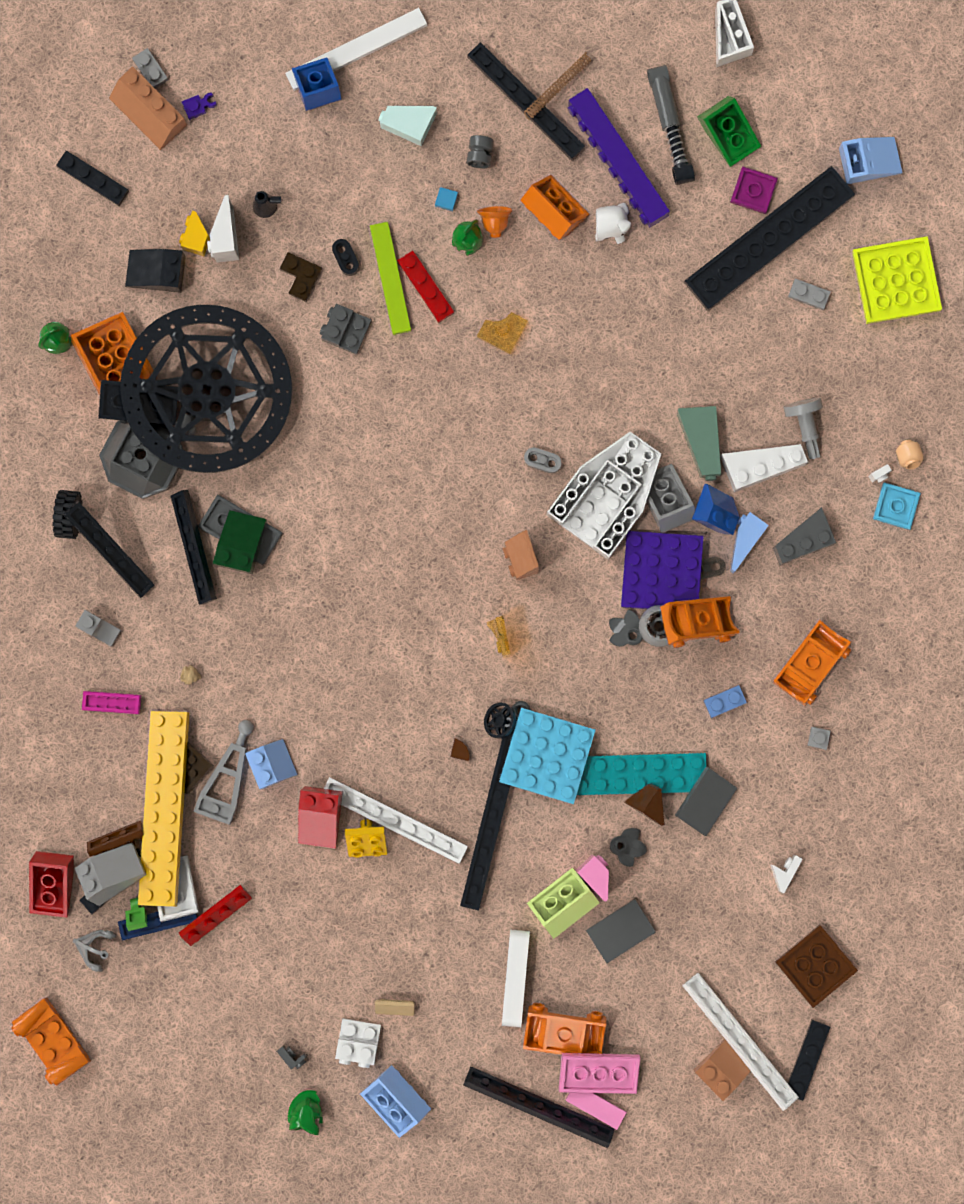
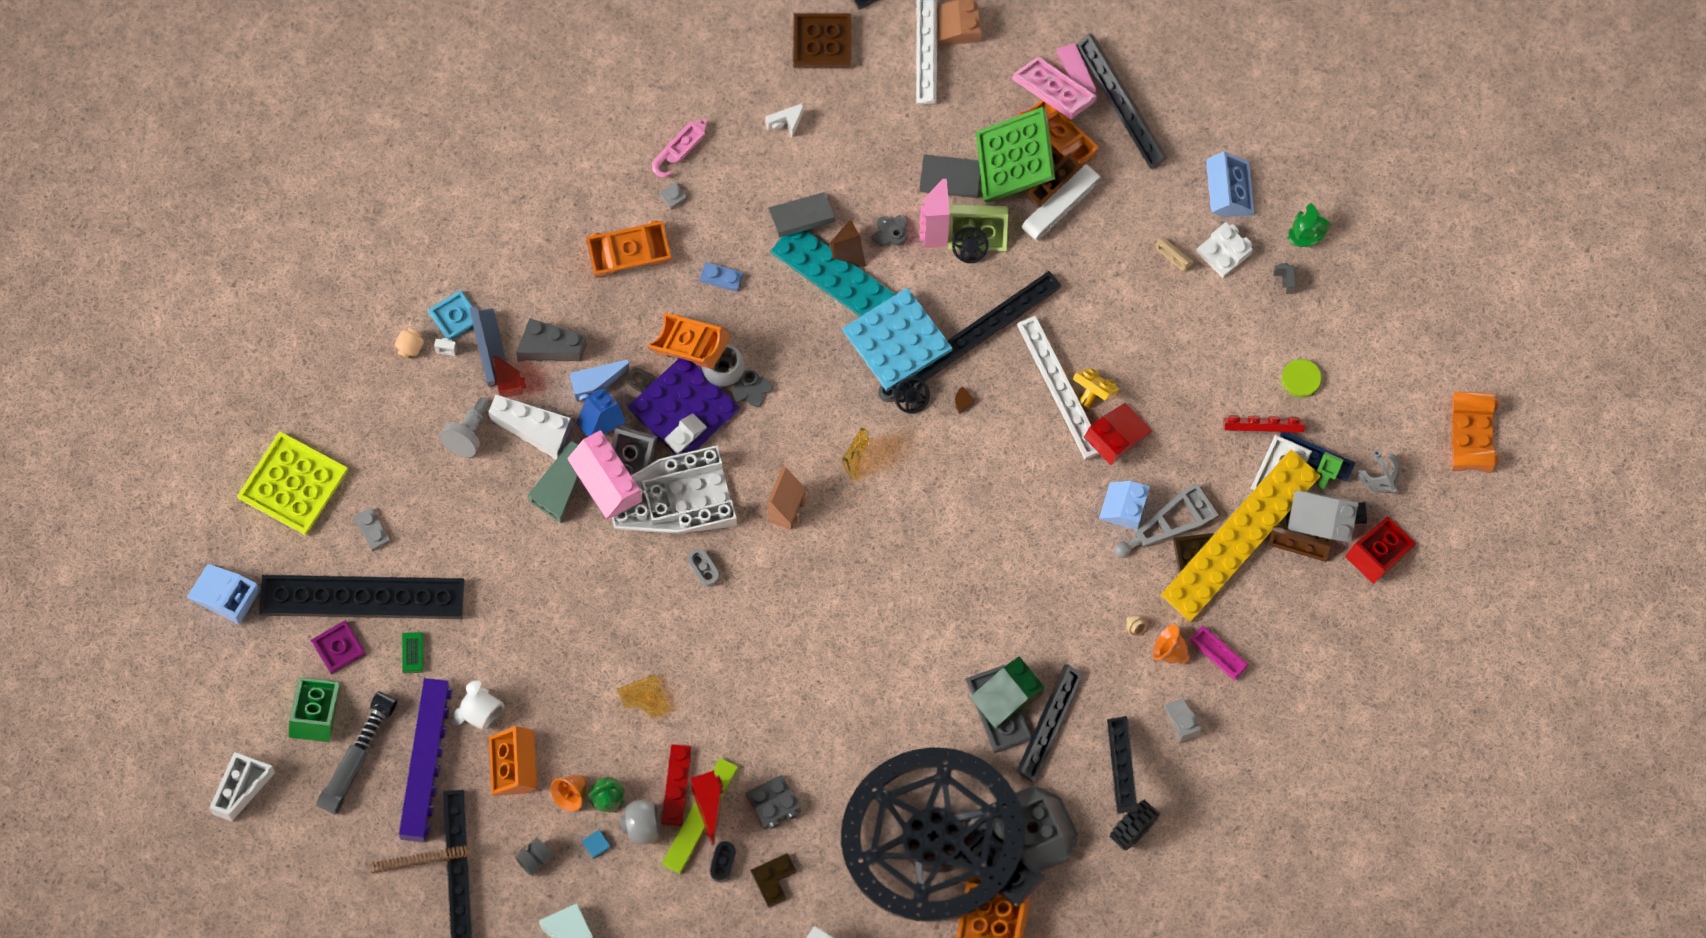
camera: 150 degrees left, 15 degrees down
(149, 676) = (1171, 646): none -> orange hat
(217, 980) = (1301, 378): none -> lime tile
(390, 285) = (707, 794): none -> red slope
(424, 234) = (641, 822): none -> light grey wheel
(533, 986) = (1063, 172): none -> reddish brown slope
(556, 882) = (970, 244): none -> black wheel
(579, 984) = (1015, 155): none -> bright green plate
(641, 549) = (685, 433): none -> white slope
(669, 461) = (604, 475): none -> bright pink slope
(697, 229) = (412, 652): none -> green tile
(811, 486) = (508, 378): none -> clear red slope
(848, 501) = (488, 341): none -> sand blue panel
(848, 783) = (680, 145): none -> bright pink plate

